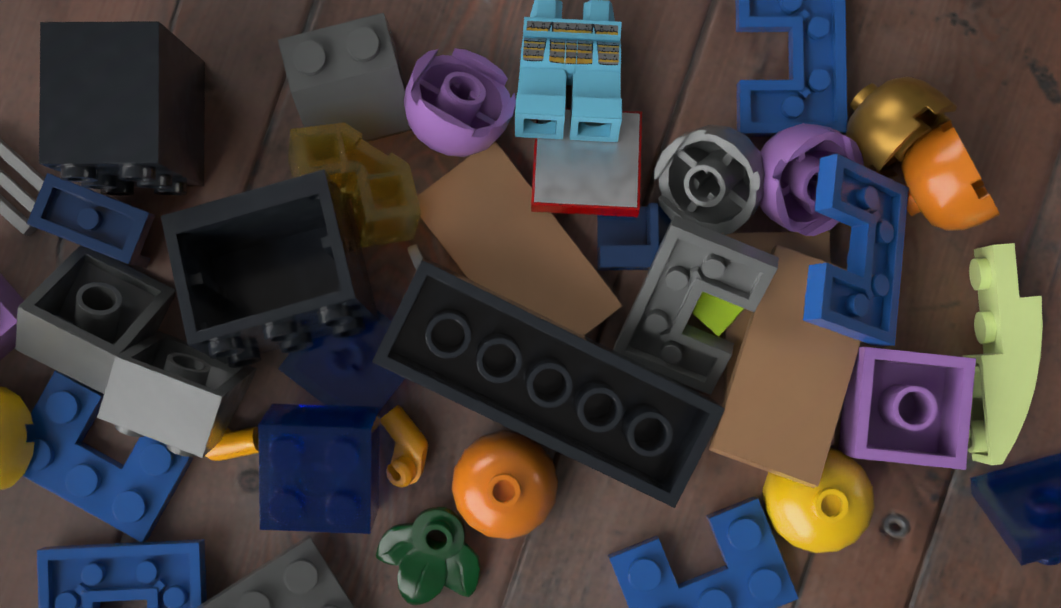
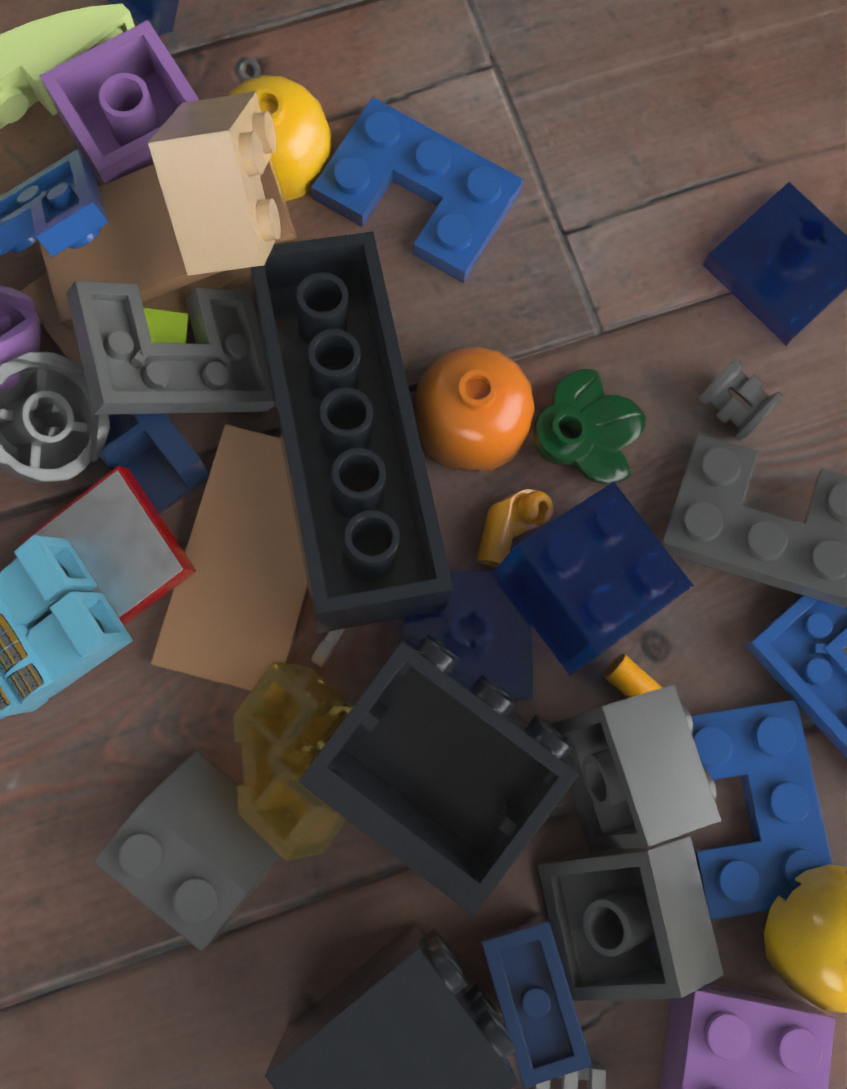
camera: 135 degrees left, 10 degrees down
(457, 102) = (136, 716): medium lavender cylinder -> none
(780, 419) = (211, 182): none -> tan brick

